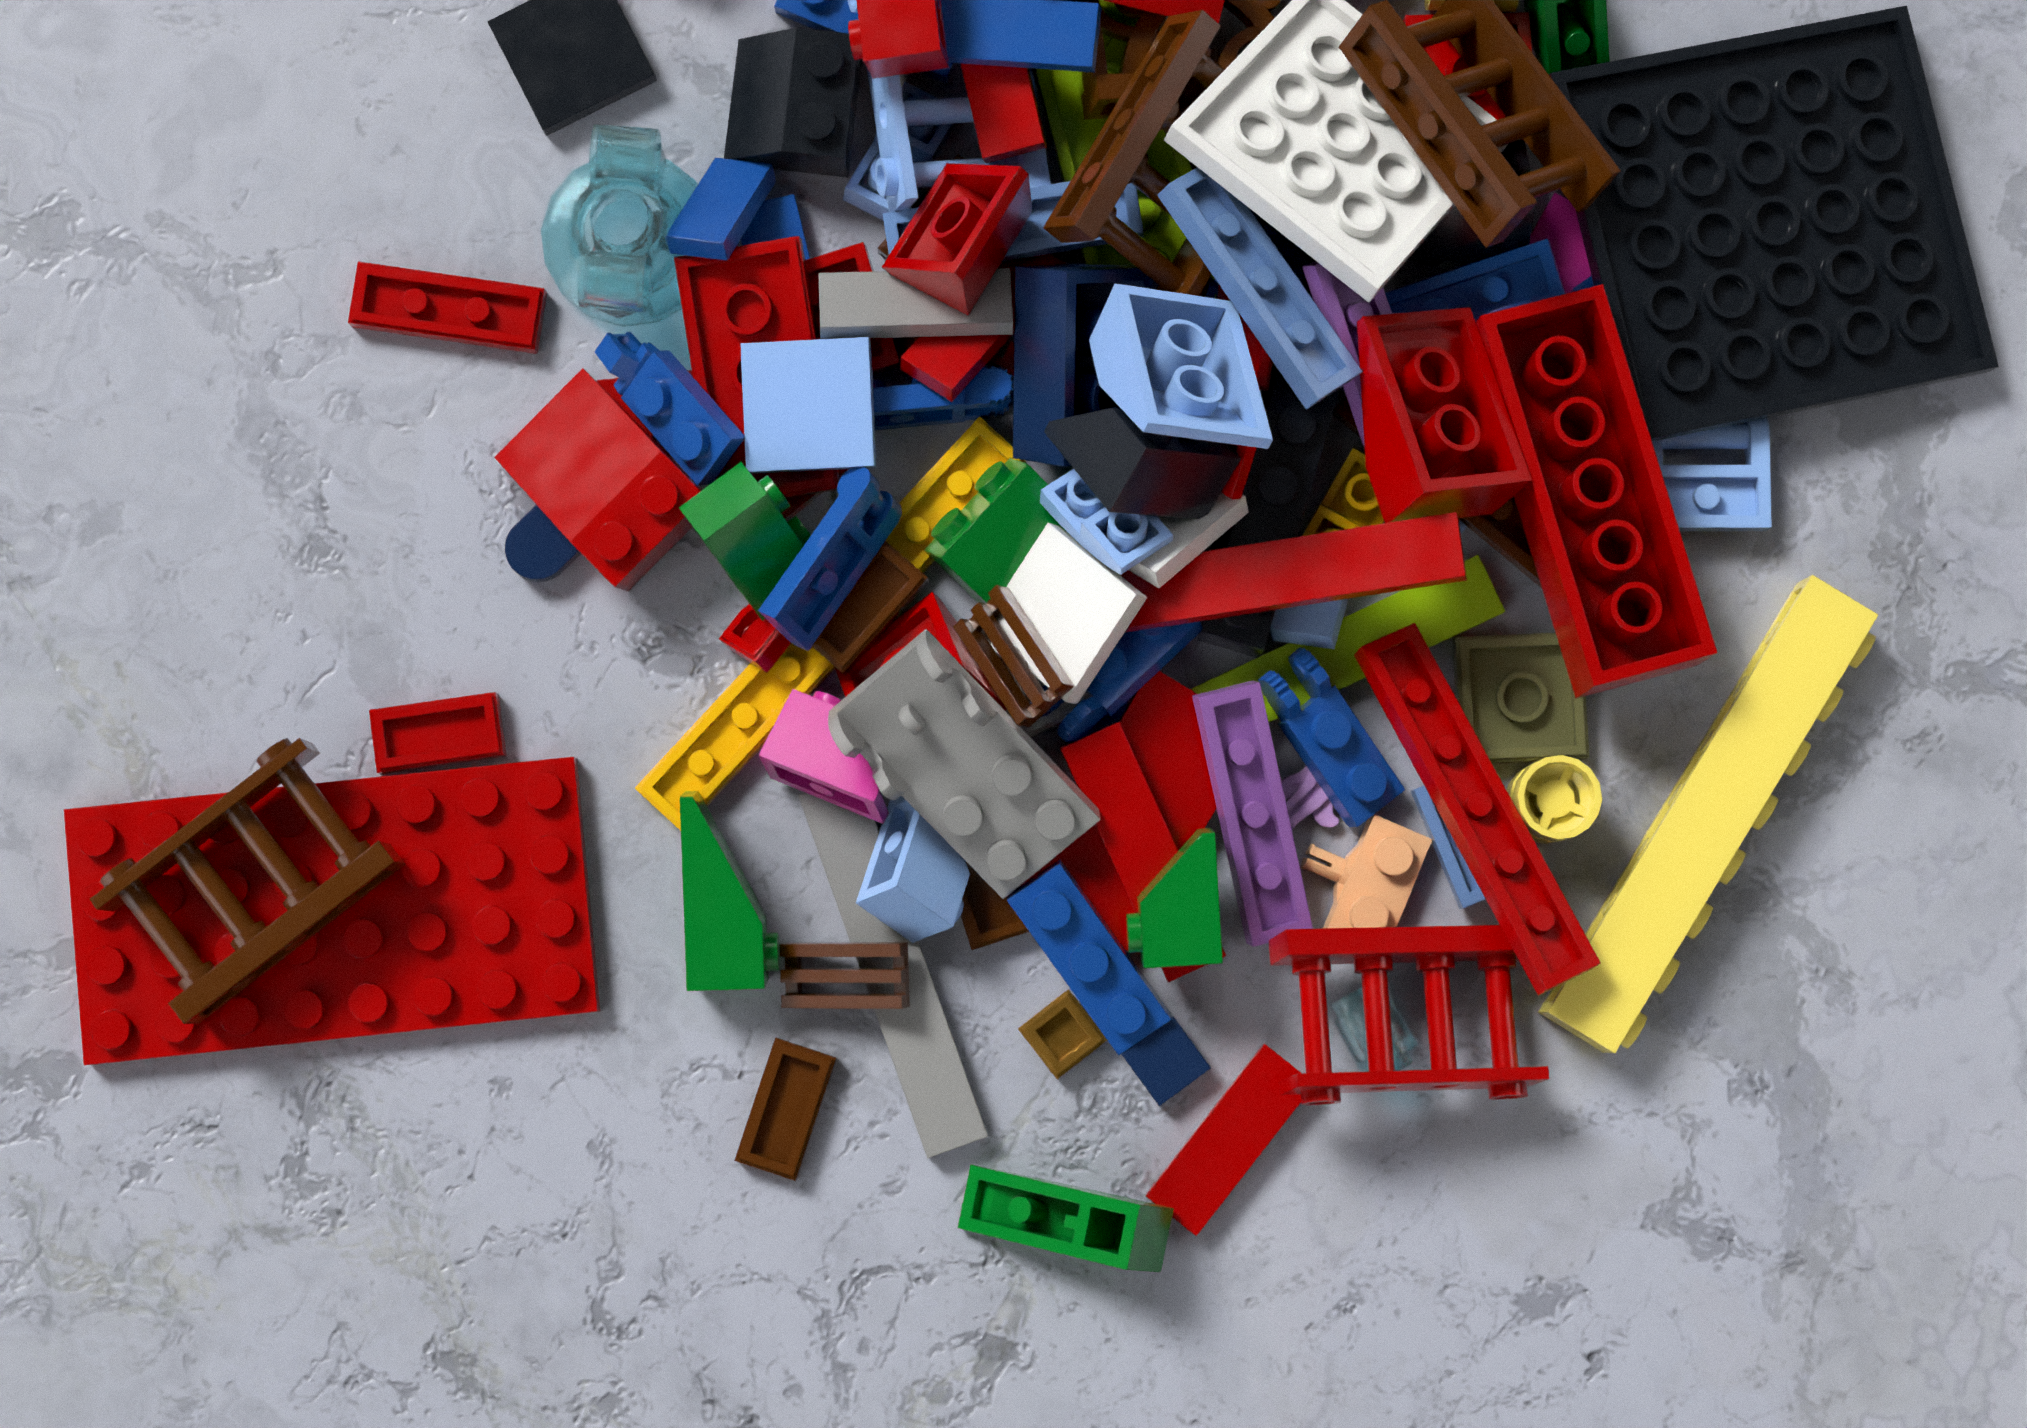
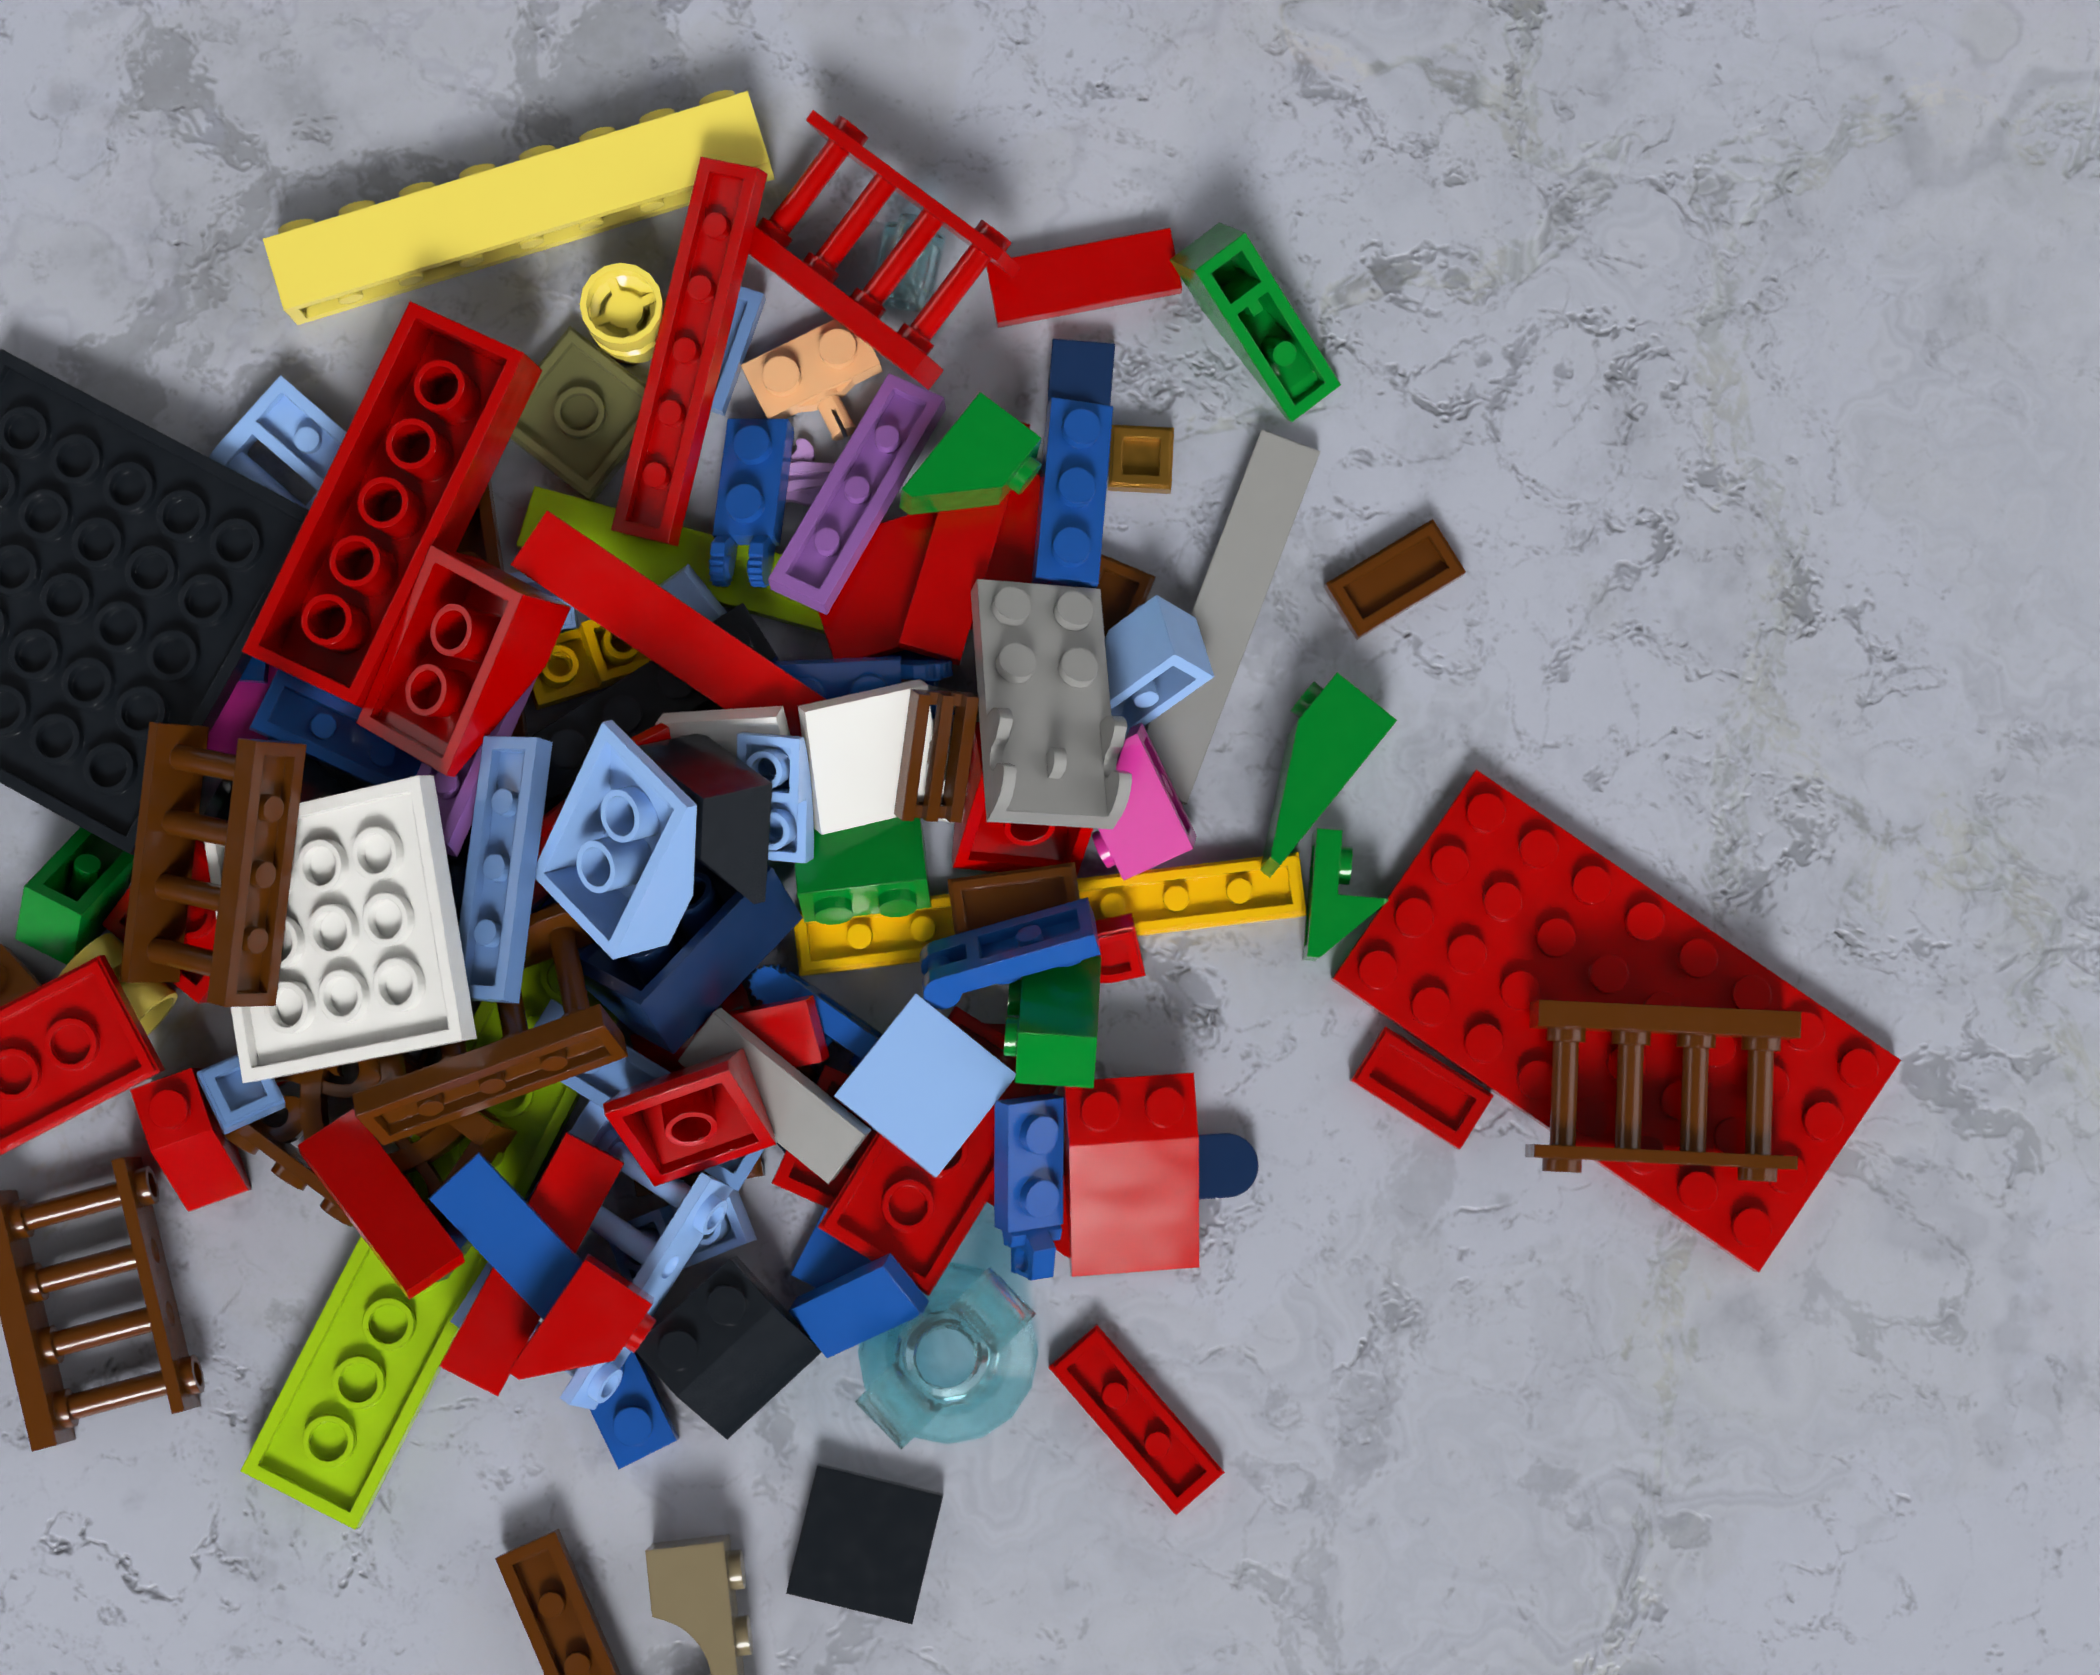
camera: 135 degrees left, 0 degrees up
(614, 802) = (1328, 913): none -> green slope
(794, 975) = (1305, 670): reddish brown tile -> none

